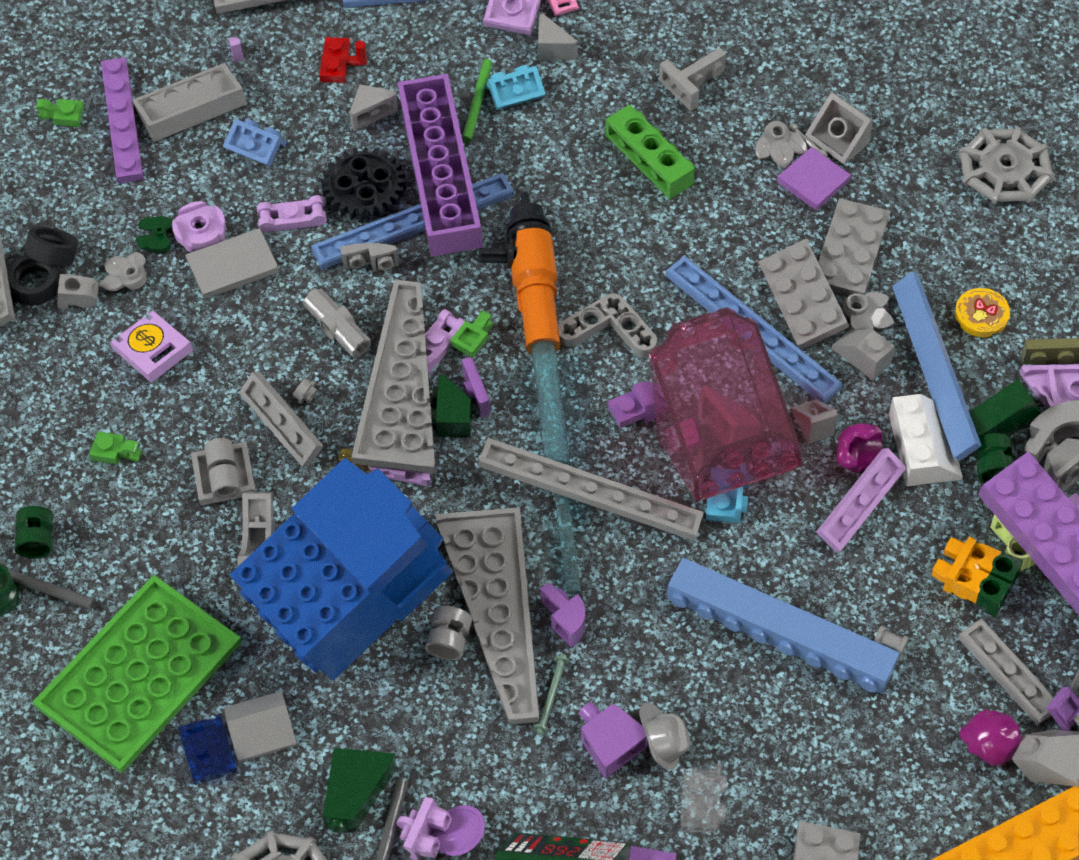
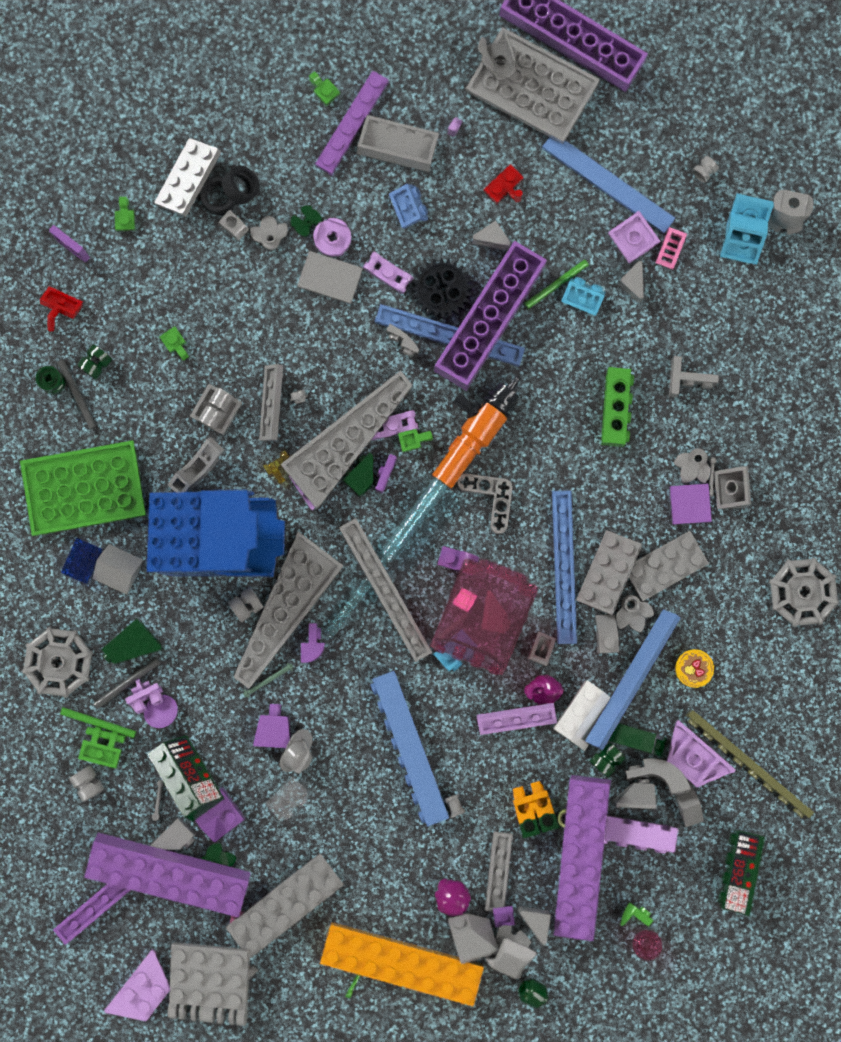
camera: 40 degrees right, 25 degrees up
(146, 341) = (244, 290): lavender container -> none
(337, 322) = (350, 367): light grey piece -> none

